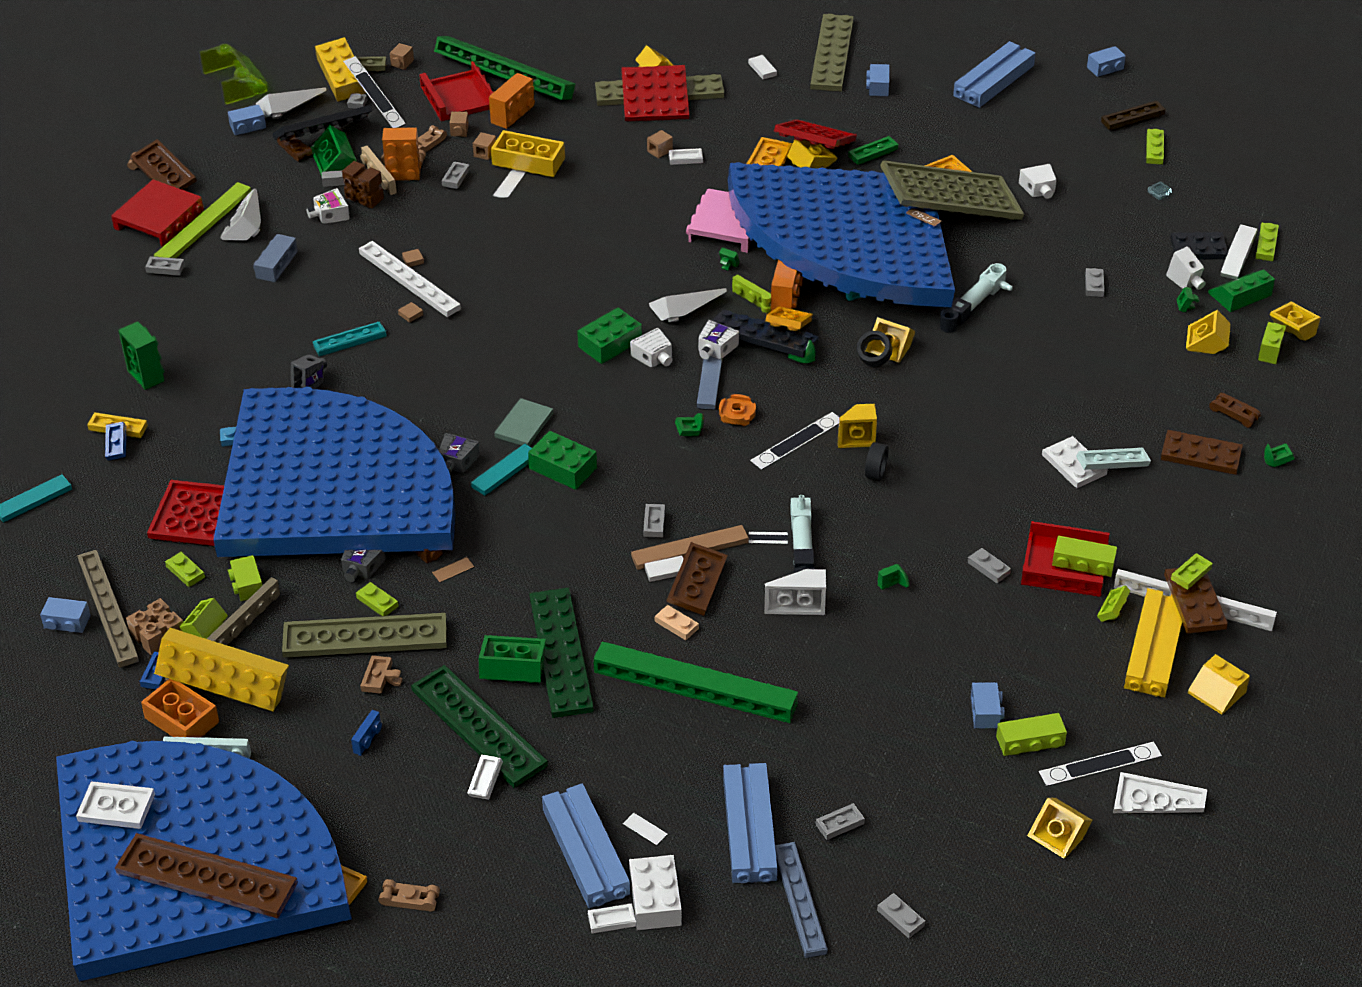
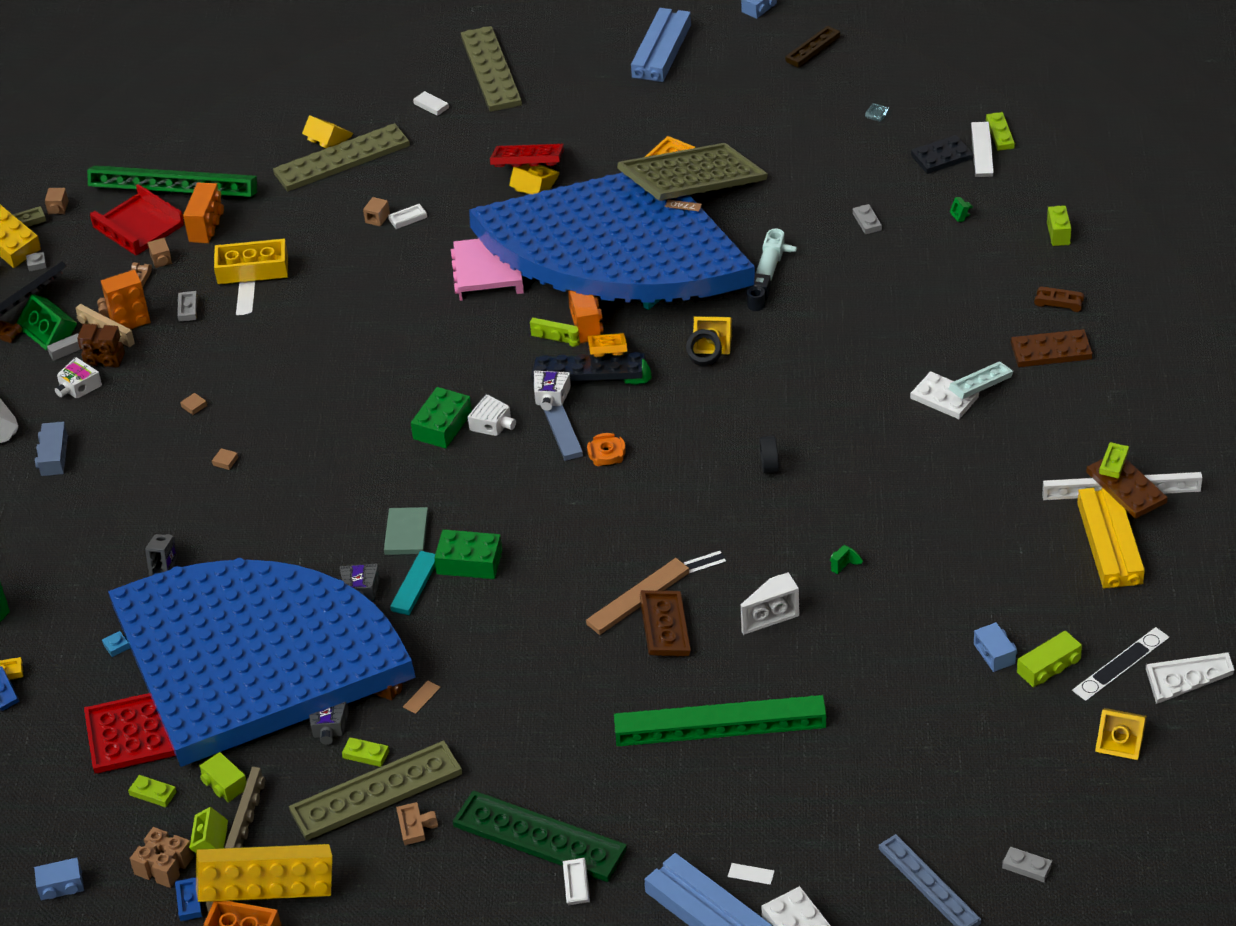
camera: 20 degrees left, 0 degrees up
(108, 609) = (98, 857): dark tan plate -> none
(349, 338) = (178, 505): teal tile -> none
(366, 732) = (436, 888): blue plate -> none
(374, 92) = (54, 246): sticker -> none
(410, 279) = (204, 425): white plate -> none
(483, 145) = (200, 267): medium nougat brick -> none
(512, 658) = (536, 760): green slope -> none
(563, 658) = (575, 739): dark green plate -> none
(654, 520) = (590, 582): light grey plate -> none
(655, 93) = (342, 161): red plate -> none
(663, 568) = (626, 624): white tile -> none
(676, 306) = (494, 365): white wedge -> none
(676, 622) = (667, 671): light nougat plate -> none
(690, 425) = (571, 479): green plate -> none
(728, 258) = (512, 304): green tile -> none
(749, 823) = (846, 832): medium blue brick -> none
(770, 152) = (490, 188): light orange plate -> none
(796, 440) = (677, 460): sticker -> none
(802, 536) = (728, 534): light aqua piece -> none
(840, 821) = (926, 800): light grey plate -> none
(858, 426) = (735, 427): yellow slope -> none
(873, 150) = (588, 154): green plate -> none
(878, 80) = (553, 83): medium blue brick -> none
(989, 565) = (923, 517): light grey plate -> none
(1038, 180) = (762, 137): white torso -> none
(1039, 559) = (987, 488): red panel -> none
(1084, 556) = (1006, 479): lime brick -> none
(1113, 603) = (1054, 514): lime plate -> none
(1155, 146) = (849, 71): lime plate -> none
(1186, 269) = (946, 181): white torso -> none
(1209, 334) = (998, 235): yellow slope -> none
(1219, 684) = (1185, 555): yellow slope -> none
(1244, 290) = (1005, 183): green slope -> none
(1278, 455) = (1121, 328): green plate -> none
(1297, 320) = (1074, 197): yellow slope -> none

